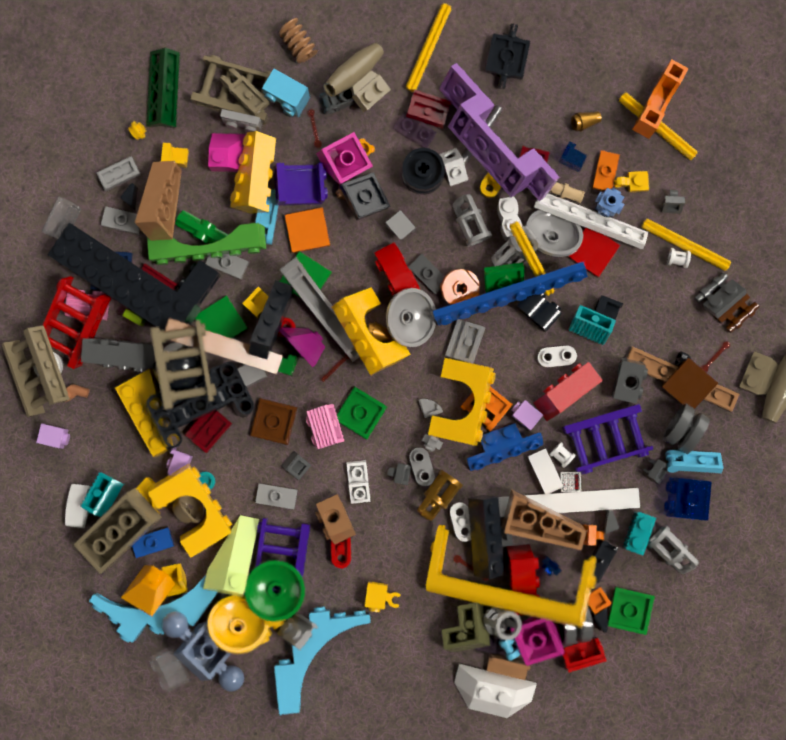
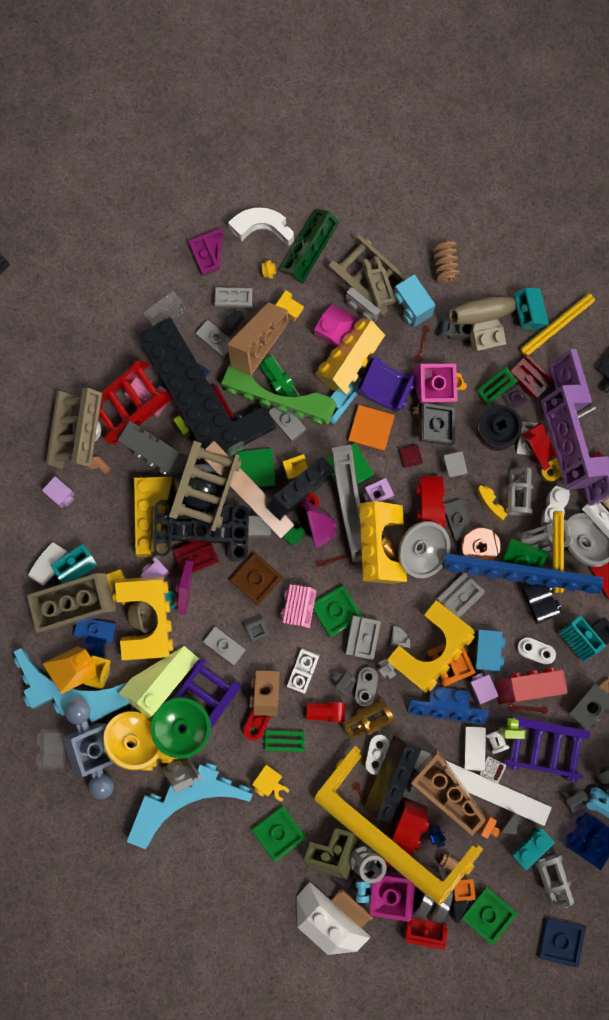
camera: 25 degrees right, 5 degrees down
(72, 141) = (208, 251): none -> magenta wing
(104, 86) = (261, 218): none -> white arch
(160, 557) = (95, 646): none -> clear blue slope
(212, 464) = (183, 588): none -> magenta wing
(343, 279) = (382, 487): none -> lavender brick
(356, 237) = (411, 456): none -> tile
(358, 559) = (302, 741): none -> green tile
(396, 424) = (363, 637): none -> light grey plate
(397, 45) = (531, 308): none -> teal brick
(400, 506) = (326, 712): none -> red piece
(408, 118) = (509, 376): none -> green tile
(410, 636) = (278, 833): none -> green tile
(444, 240) = (487, 496): none -> yellow slope
(467, 169) = (539, 446): none -> red panel
(514, 378) = (488, 650): none -> dark azure brick
(559, 417) = (544, 710): none -> clear red hinge
(570, 439) = (512, 730): none -> lime tile
(571, 582) = (448, 862): none -> medium nougat pin
(604, 554) = (491, 851): black hinge -> none
(705, 600) = (562, 942): none -> dark blue tile

